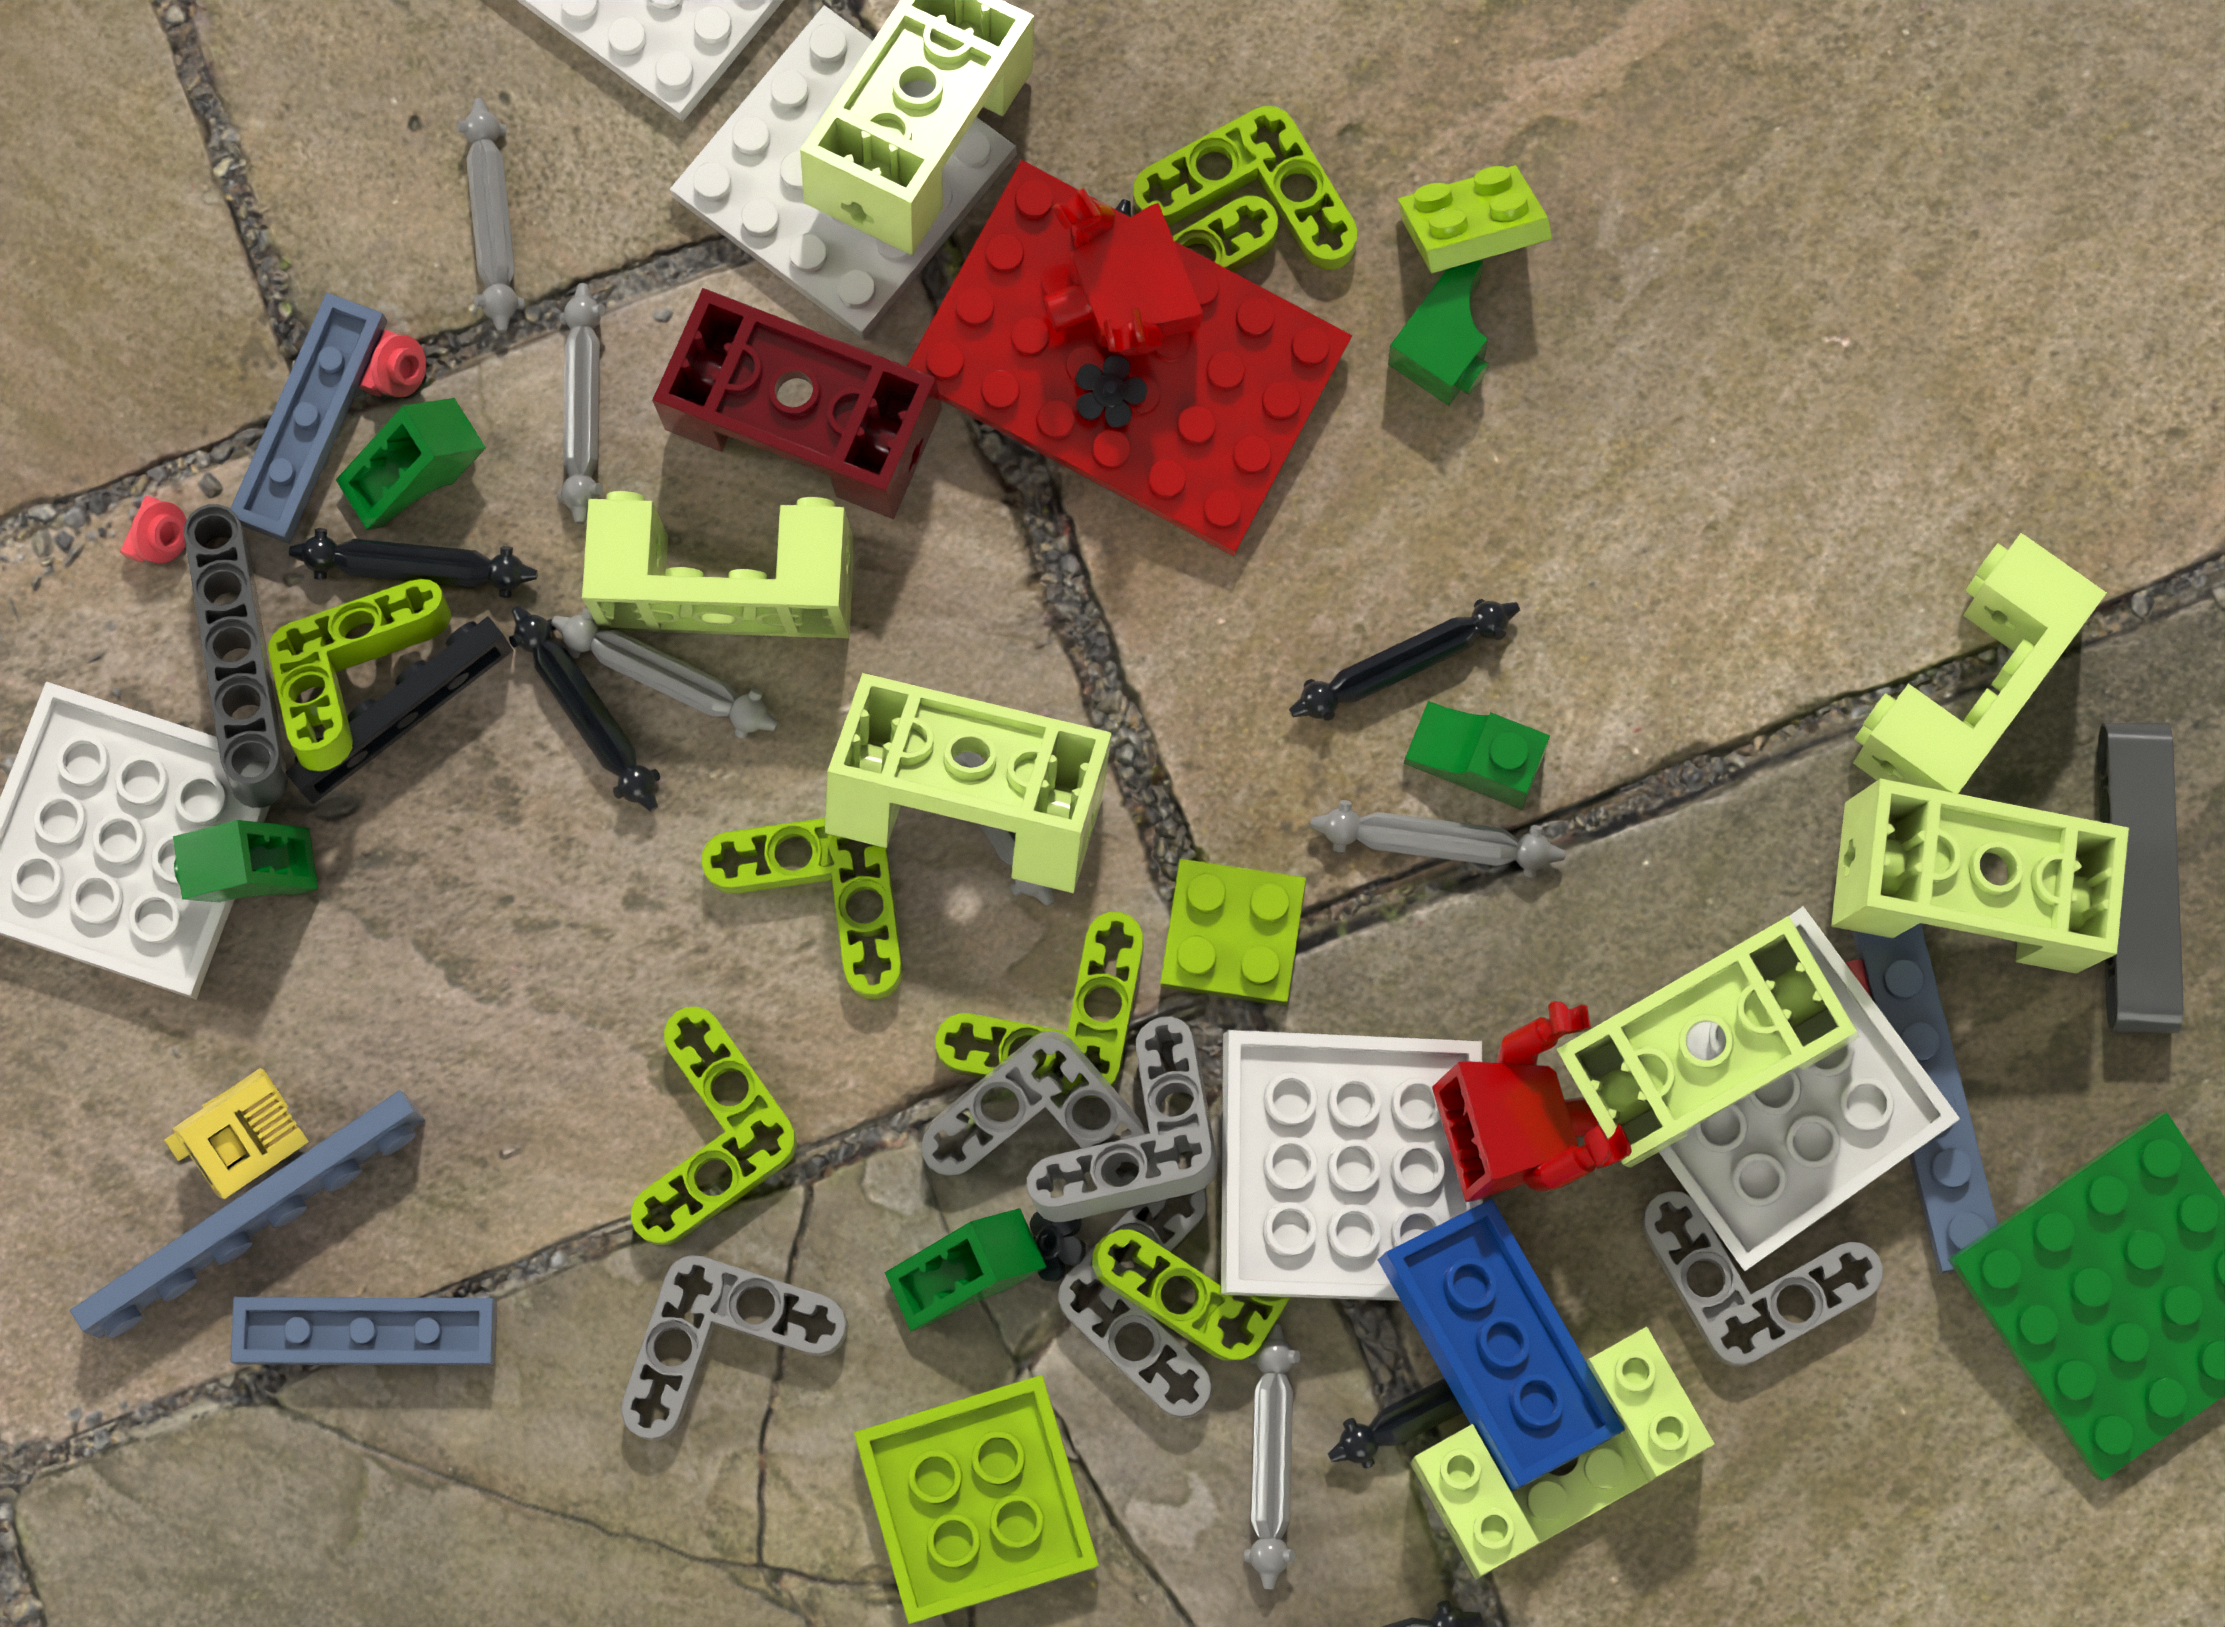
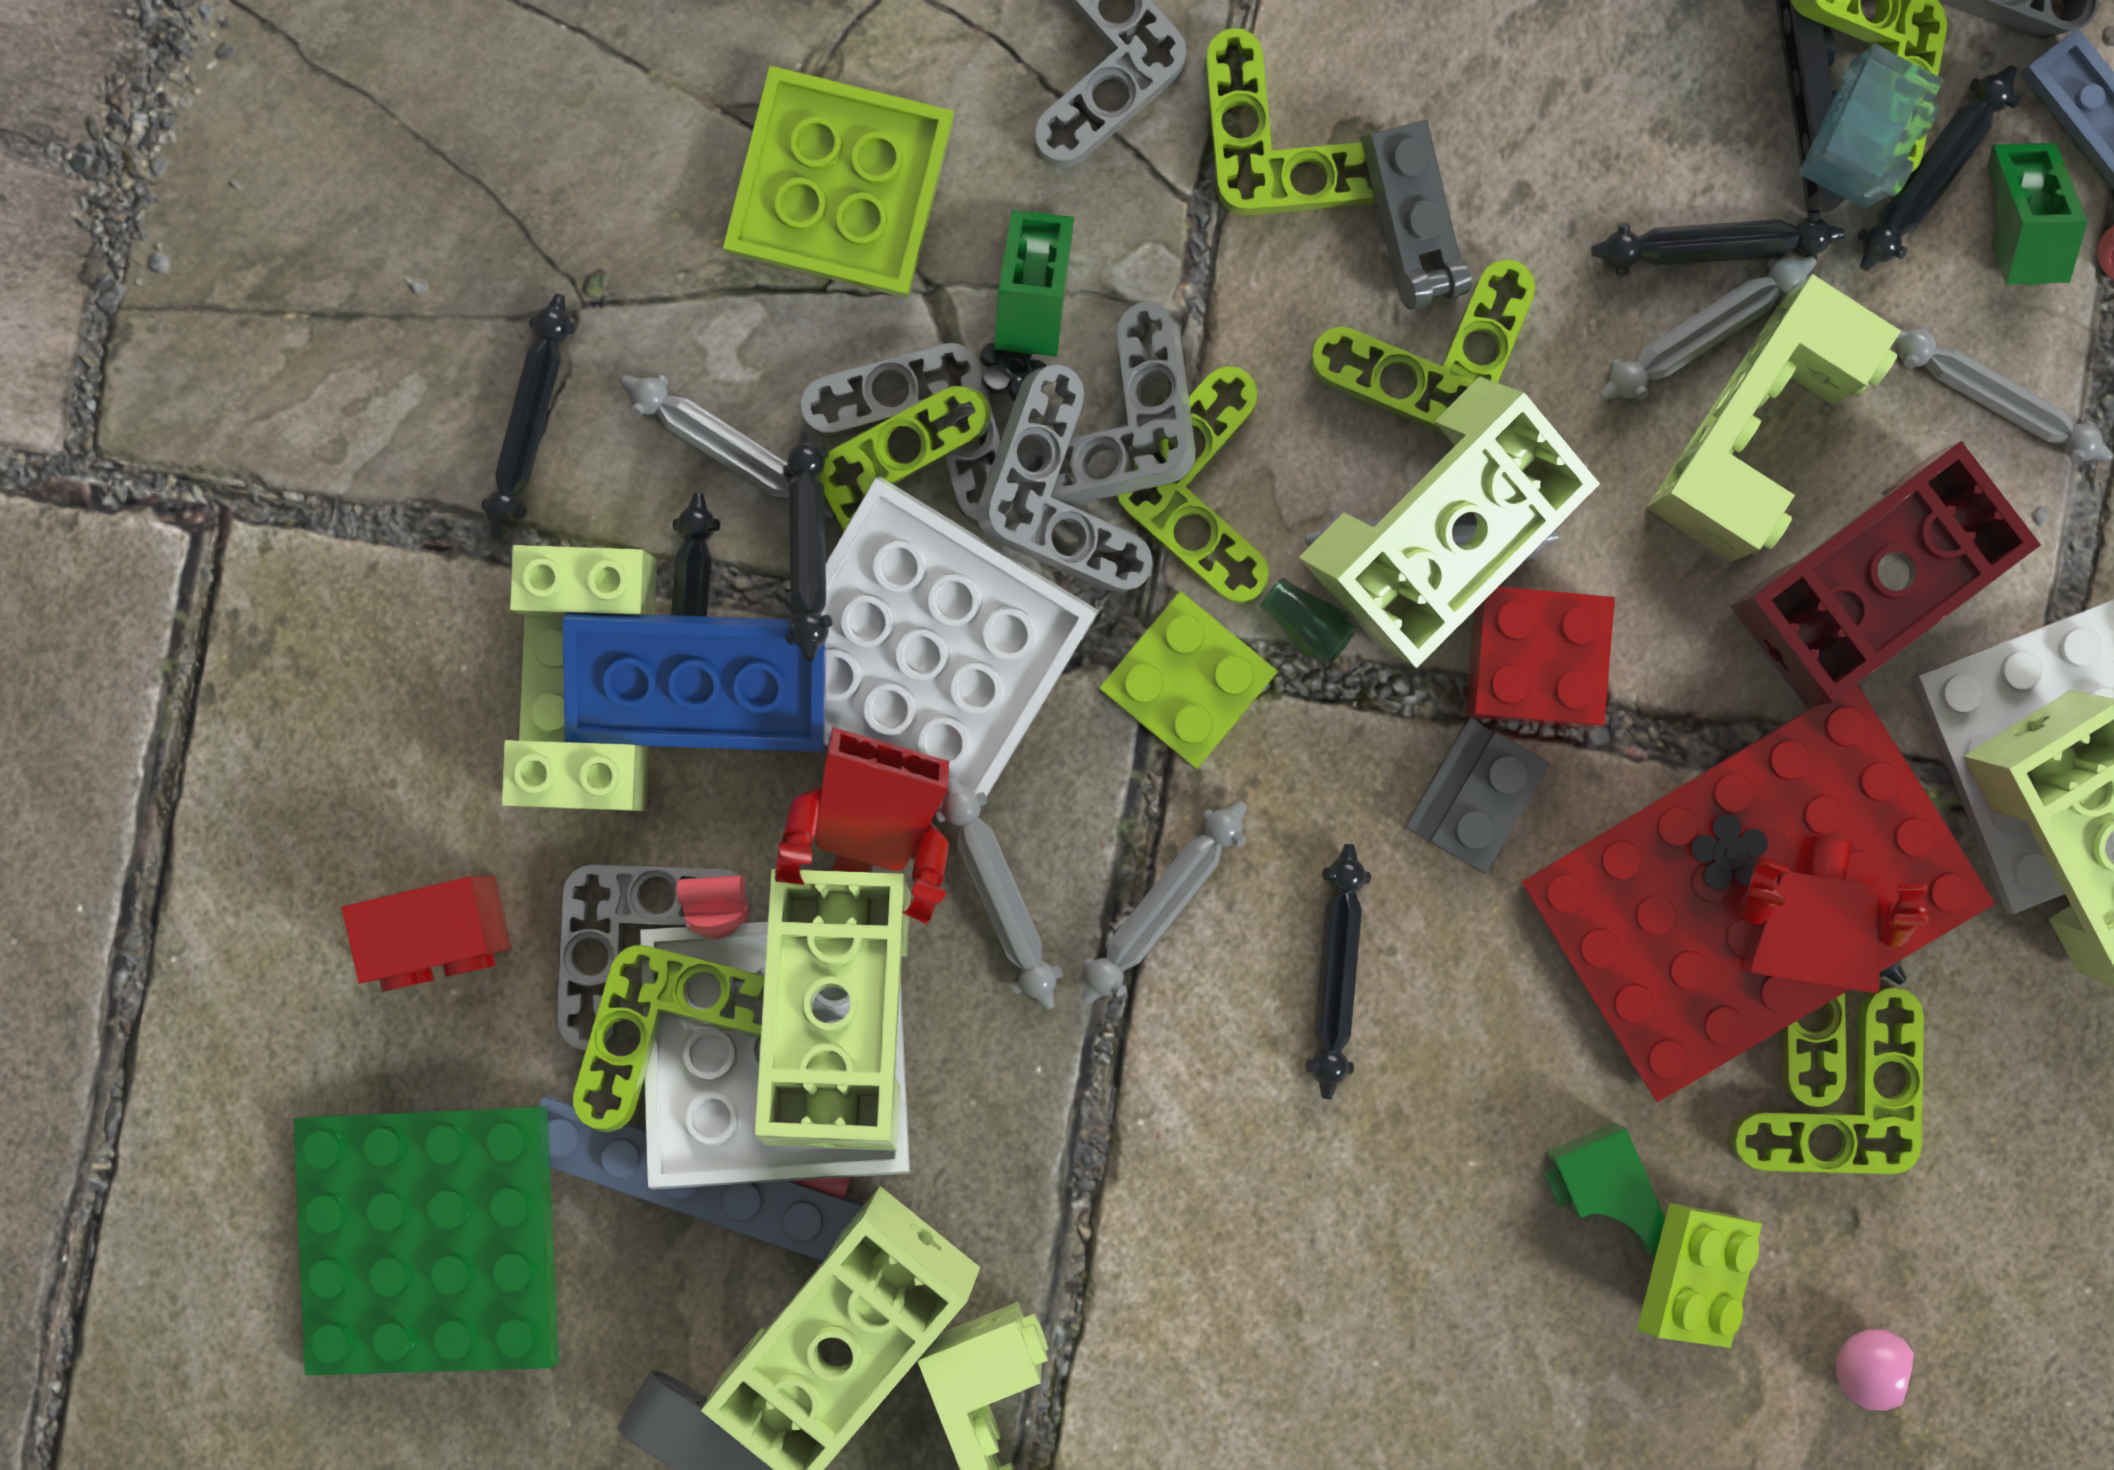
camera: 120 degrees right, 10 degrees up
(420, 626) = (1872, 127): none -> clear light blue brick
(711, 974) = (1415, 214): none -> dark grey plate
(1037, 642) = (1540, 658): none -> red brick
(1120, 857) = (1309, 622): none -> clear green cone
(1183, 633) = (1476, 795): none -> dark grey plate
(1321, 1315) = (807, 546): none -> black wheel
(1460, 41) = (1874, 1369): none -> bright pink piece
(1478, 752) = (1218, 982): green arch -> none
(1520, 975) = (999, 893): none -> light grey wheel
(1683, 1213) = (713, 904): none -> coral plate
(1788, 1203) = (663, 997): none -> lime beam
(1865, 1450) = (425, 928): none -> red brick

